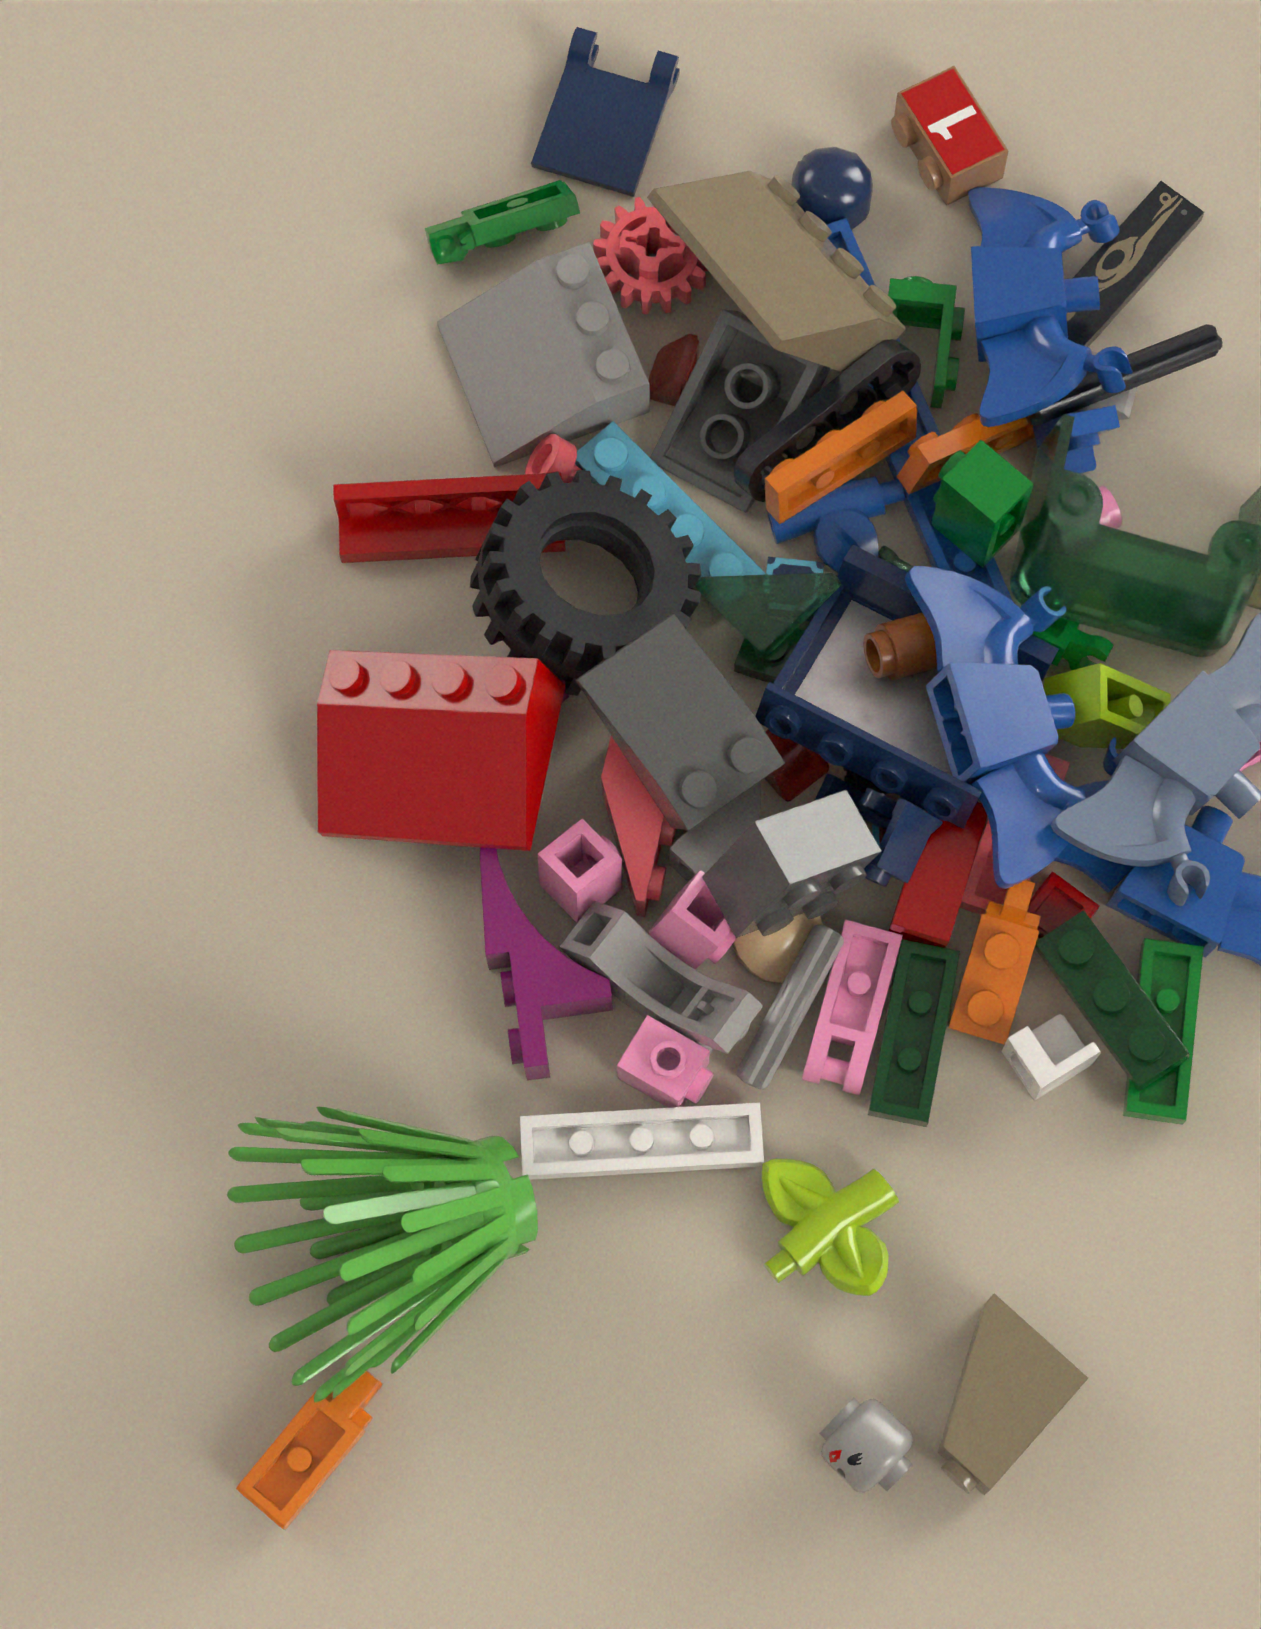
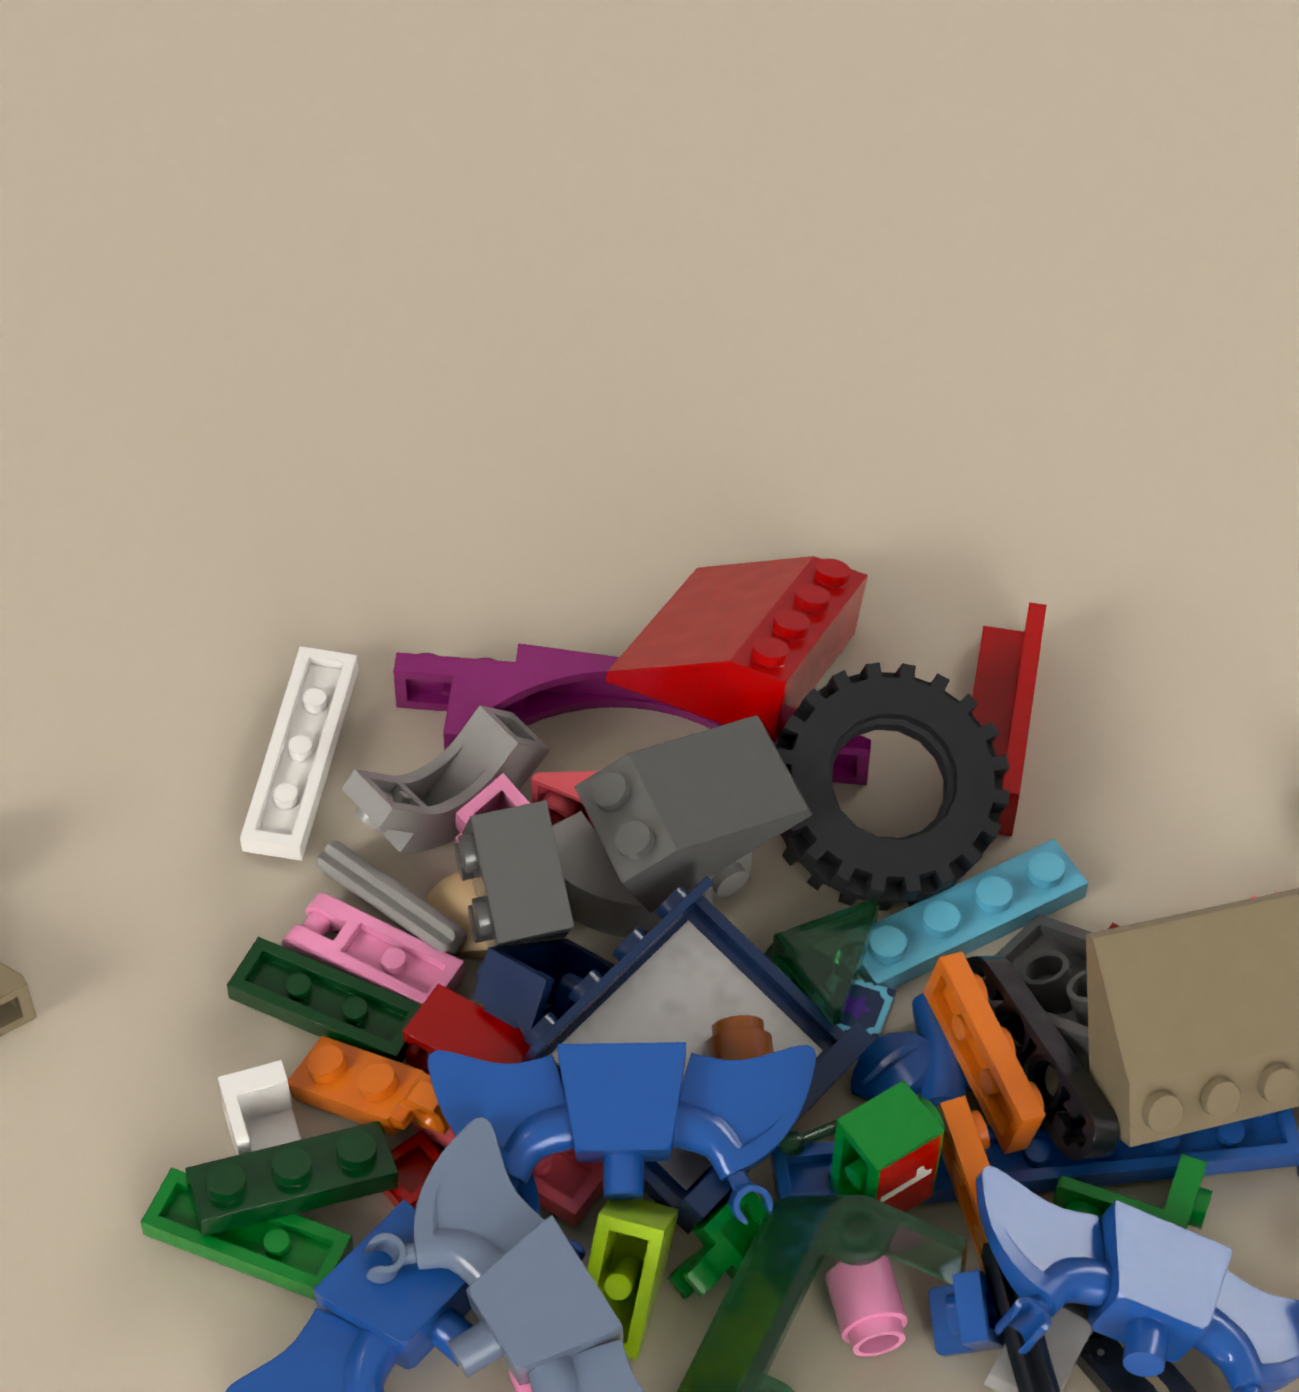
camera: 100 degrees right, 20 degrees down
(309, 1451) = (119, 462): orange hinge -> none
(433, 1231) = (312, 497): bright green plant -> none
(545, 356) = (1175, 840): light grey slope -> none
(553, 455) = (1043, 818): coral tile -> none
(580, 869) = (583, 733): bright pink brick -> none
(665, 1065) = (367, 752): bright pink brick -> none
(828, 1225) = (160, 886): lime plant -> none

